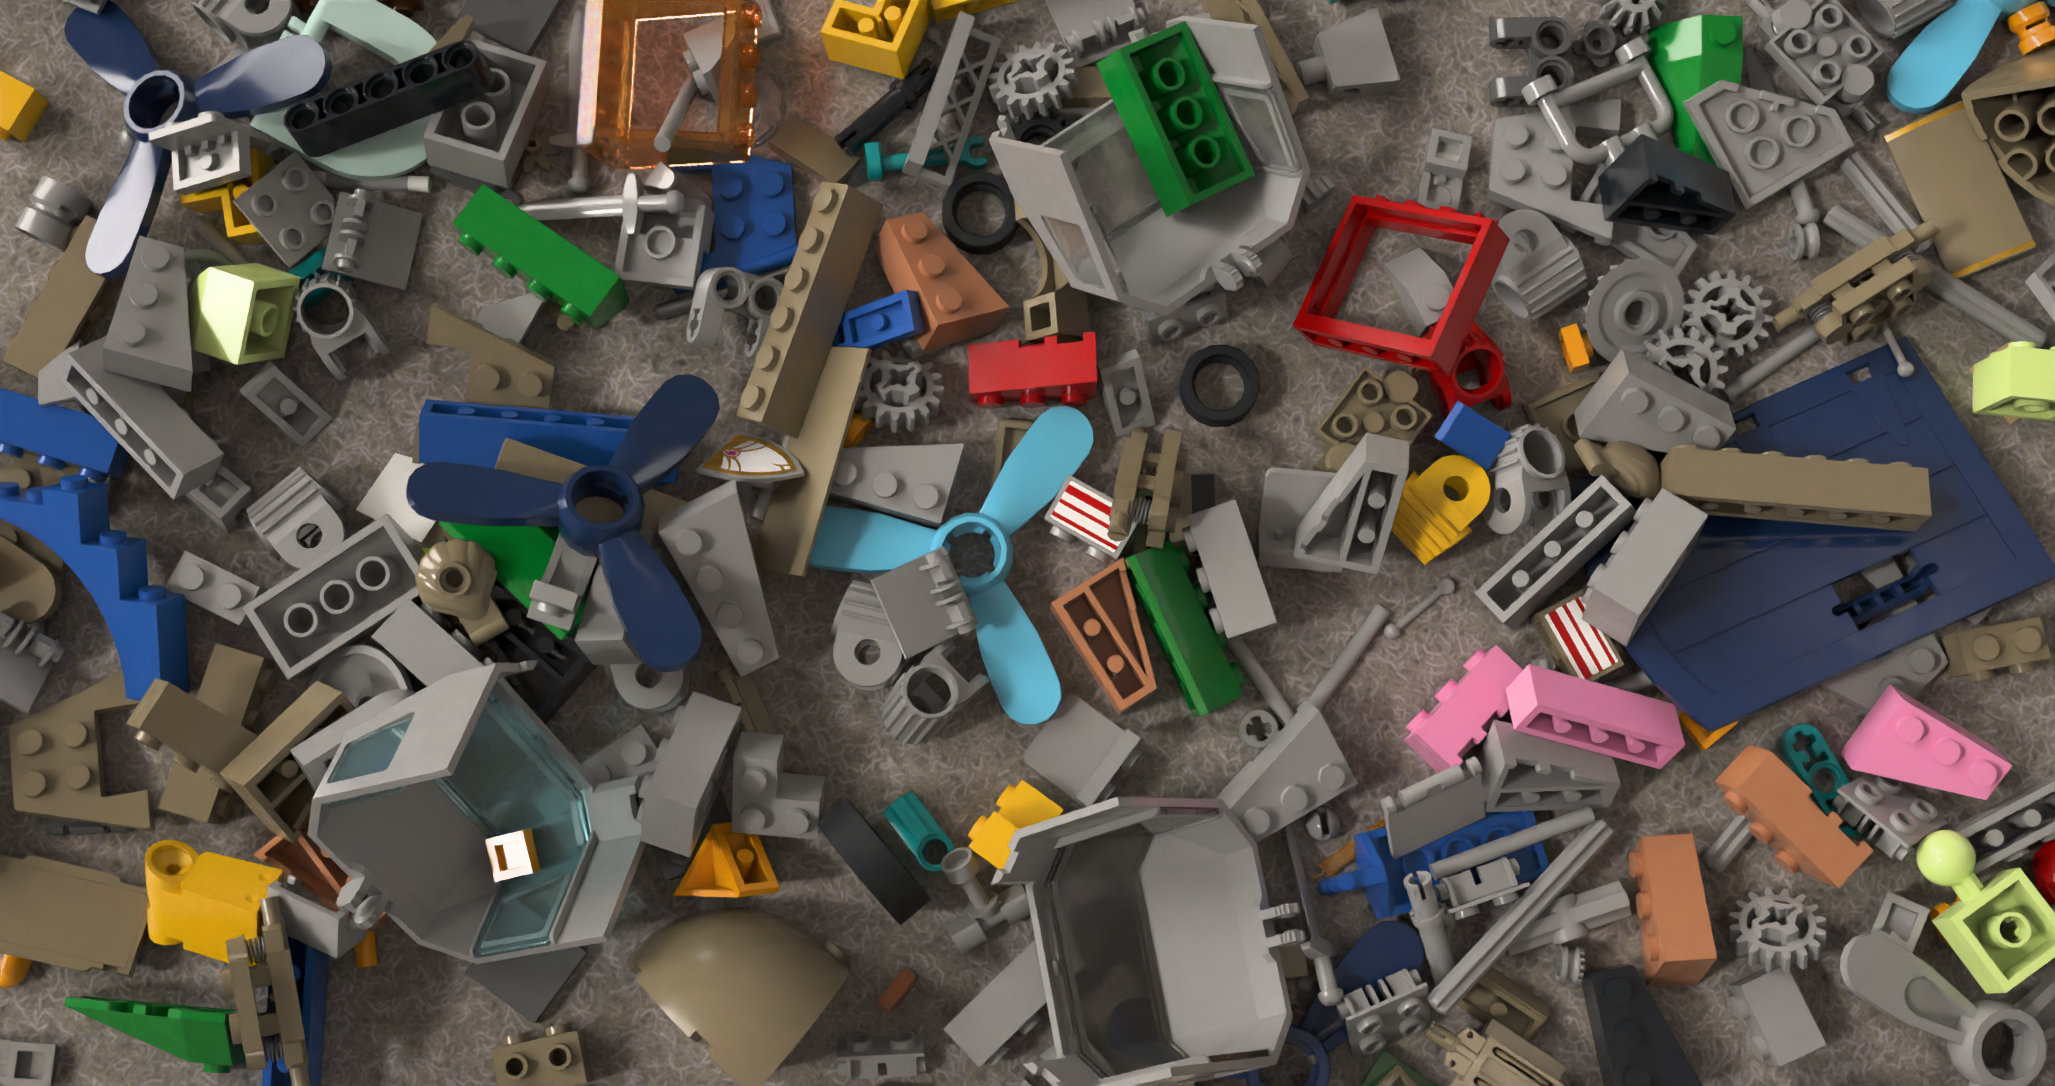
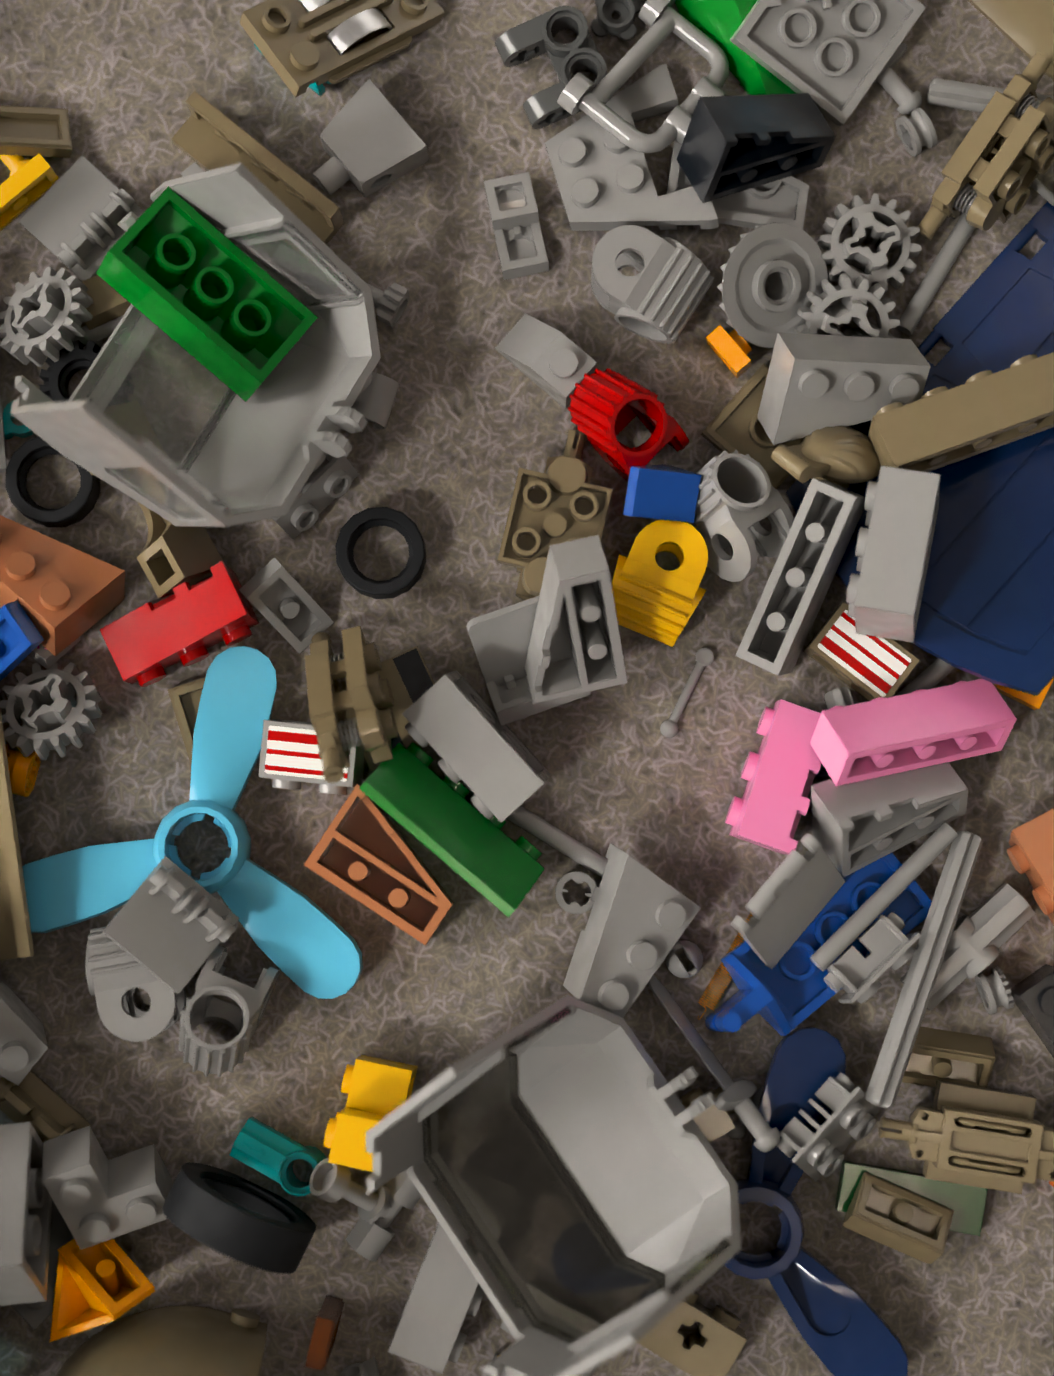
camera: 20 degrees left, 5 degrees up
(900, 481) = (93, 803): light grey wedge -> none
(1082, 751) = (406, 998): light grey bracket -> none
(1344, 255) = (451, 362): red window -> none
(1348, 657) = (635, 778): light grey piece -> none
(1428, 917) = (832, 1014): light grey pin -> none
(1880, 195) = (974, 48): light grey axle -> none

